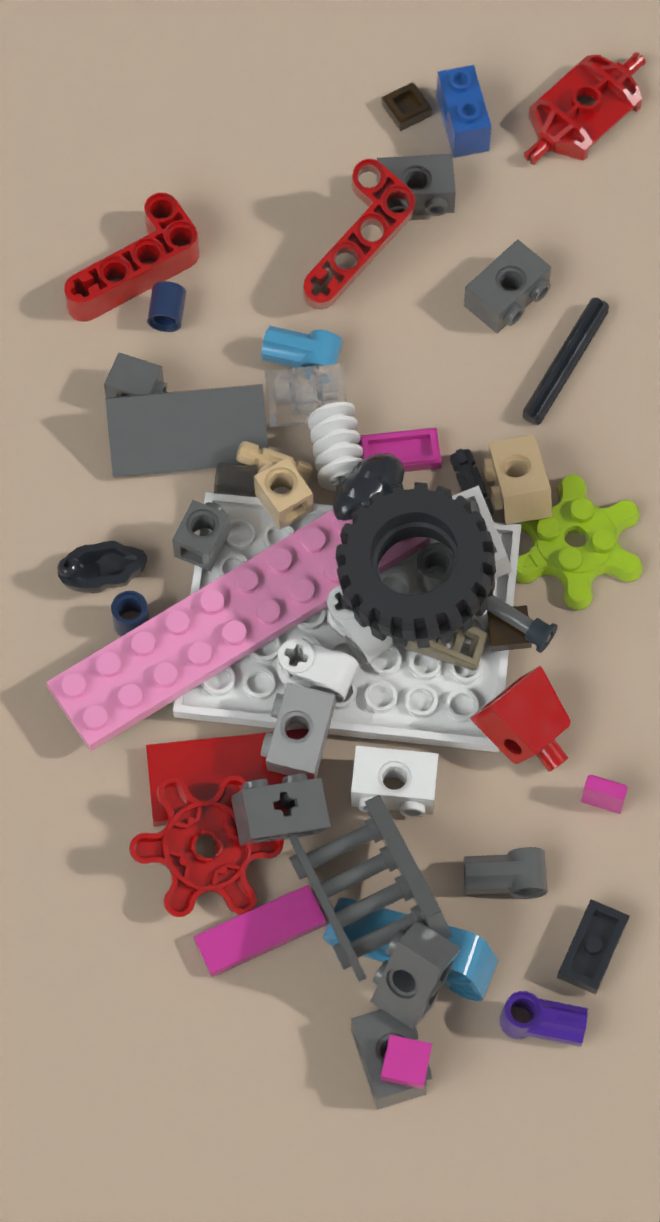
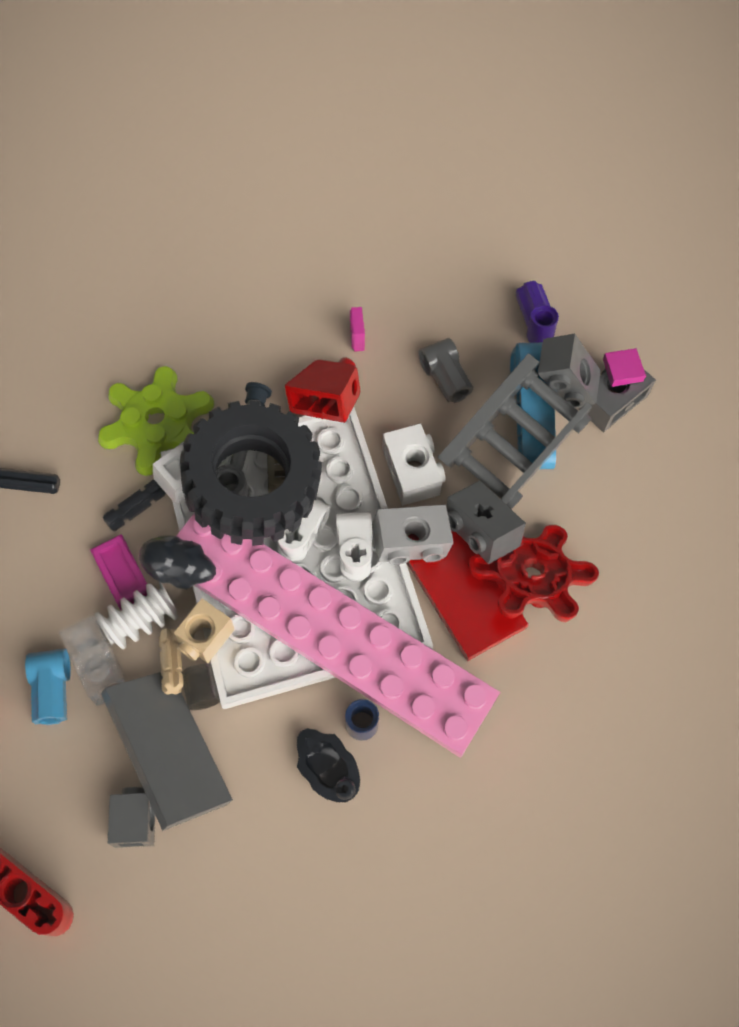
camera: 115 degrees left, 0 degrees up
(166, 306) = (36, 828): dark blue beam -> none
(201, 549) = (281, 693): dark grey brick -> none
(260, 930) = (565, 510): dark pink tile -> none
(519, 479) = (104, 463): tan brick -> none
(593, 946) = (470, 302): black plate -> none

